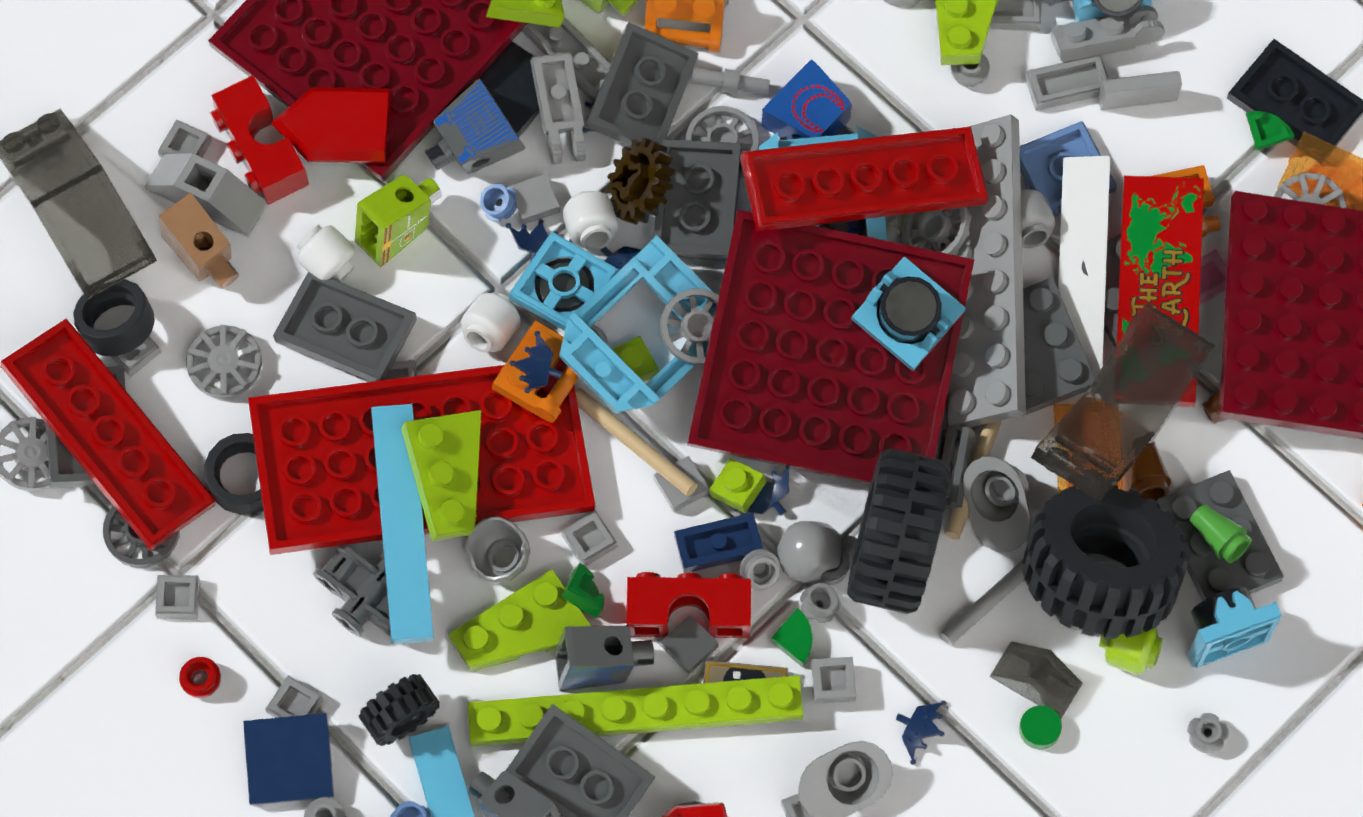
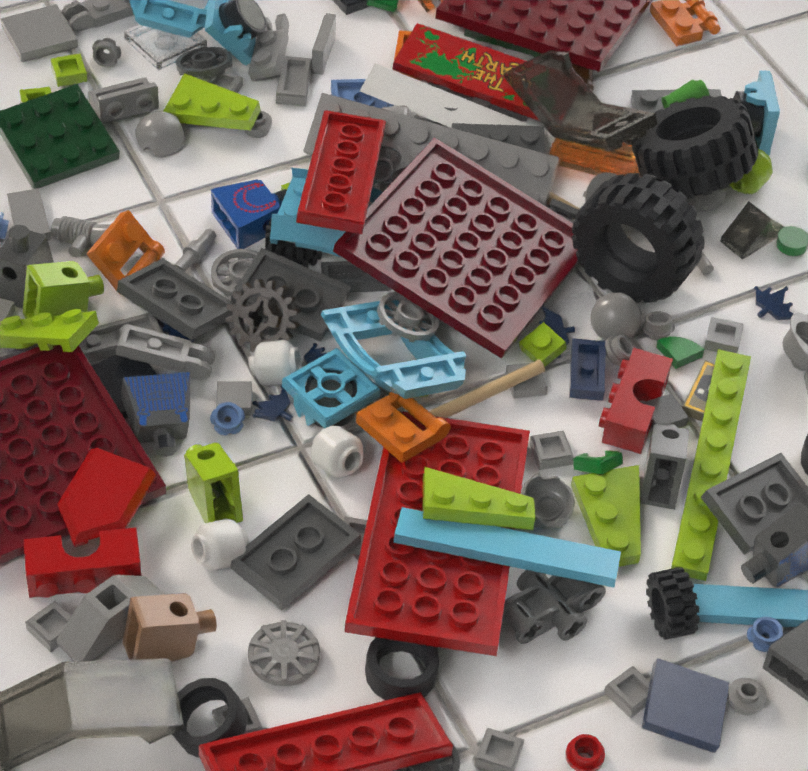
camera: 75 degrees left, 20 degrees down
(537, 365) = (403, 415): dark blue piece -> none
(908, 312) = (462, 181): piece -> none

